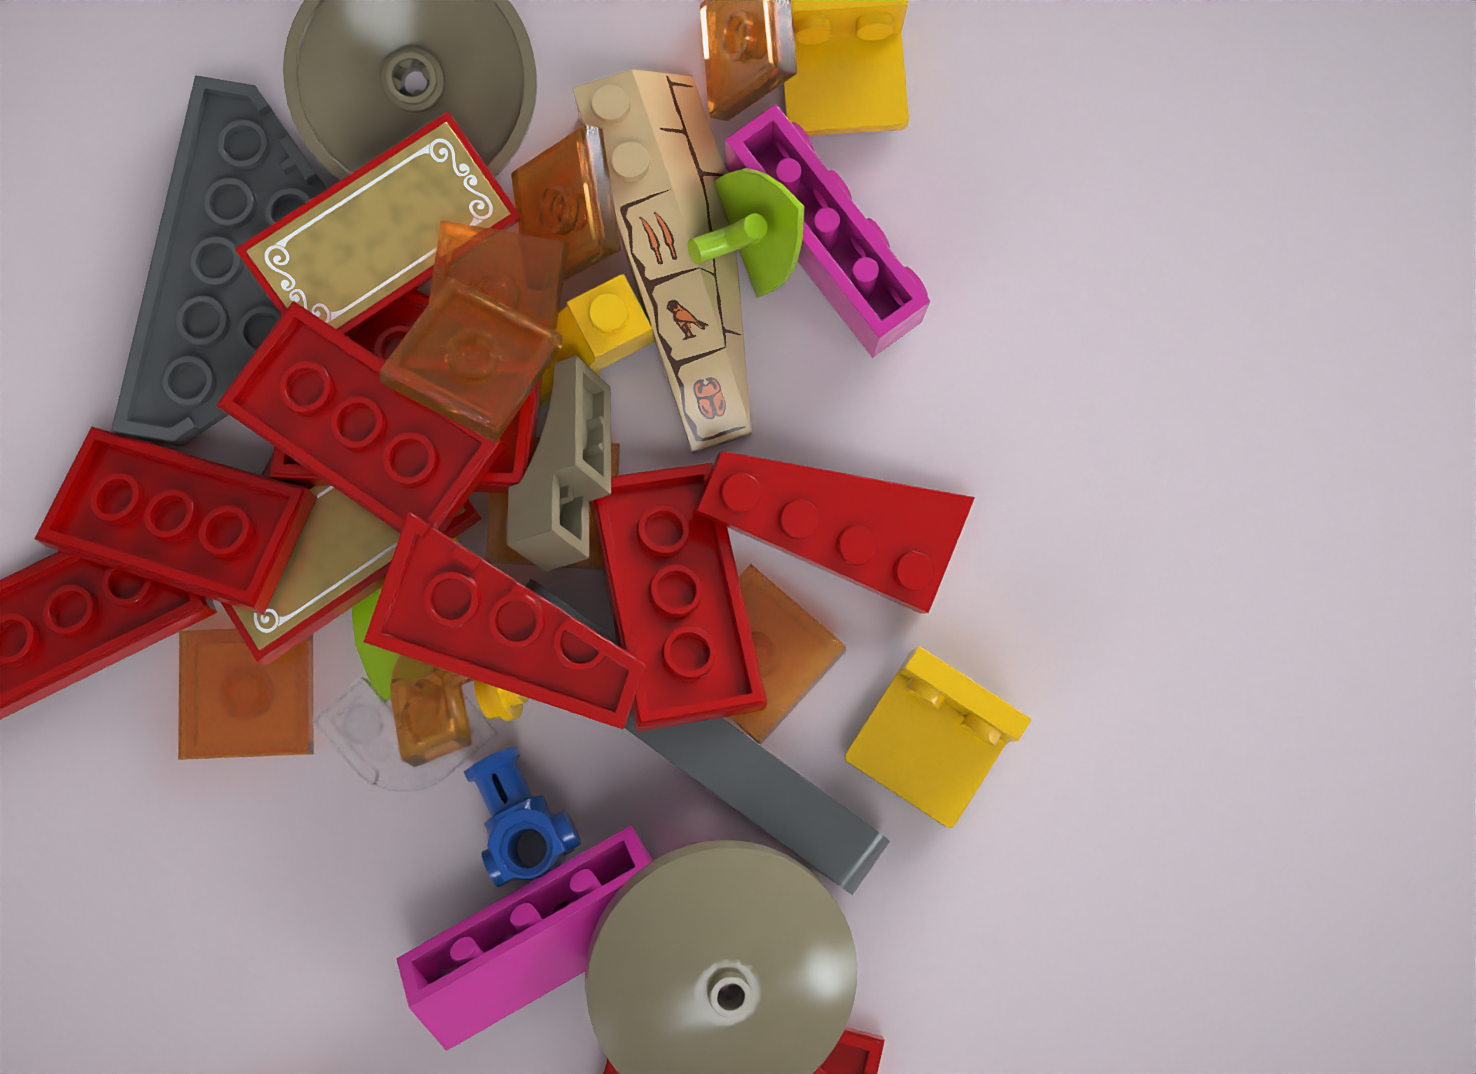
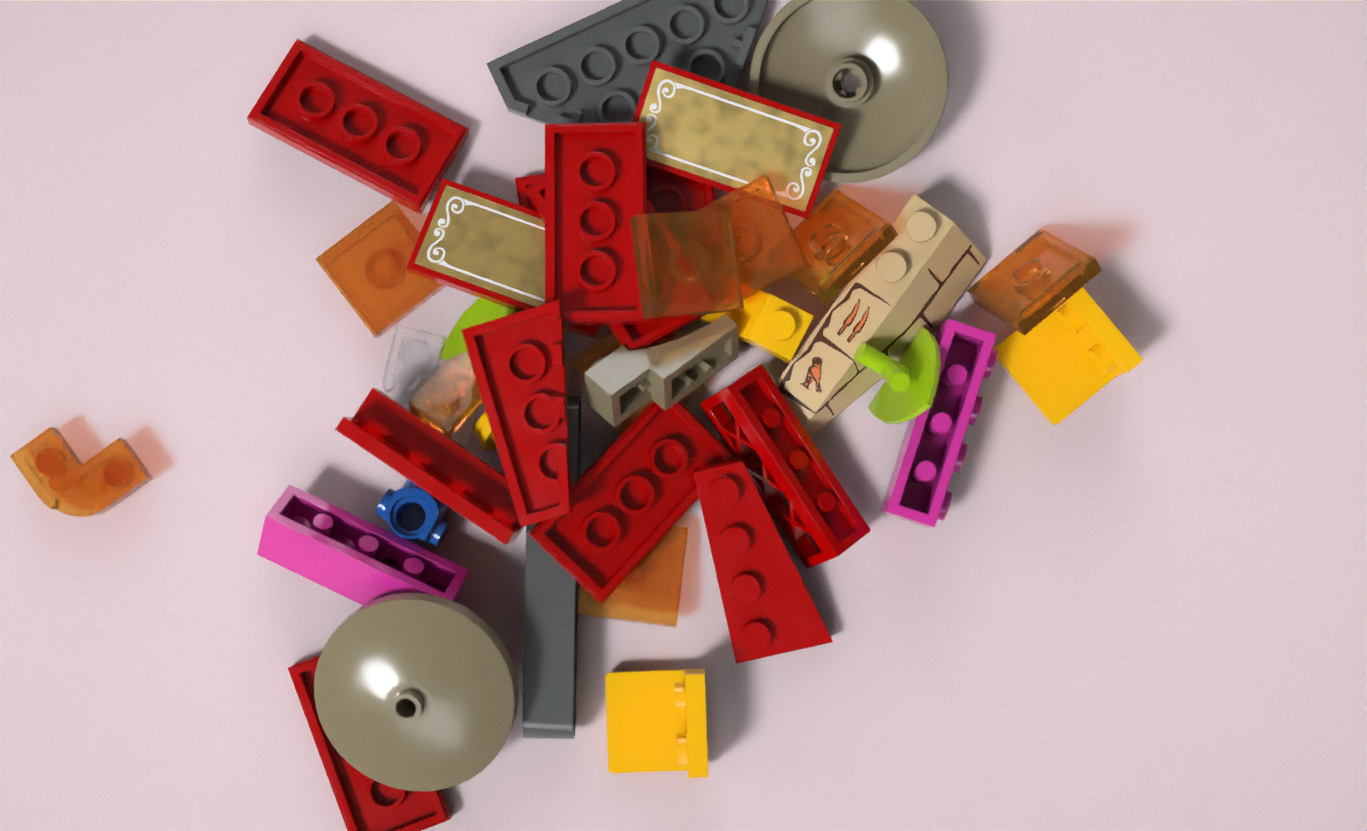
camera: 60 degrees right, 5 degrees up
(177, 519) = (459, 148): red tile -> none
(488, 777) = (434, 463): none -> red fence
(760, 409) = (788, 465): none -> red fence

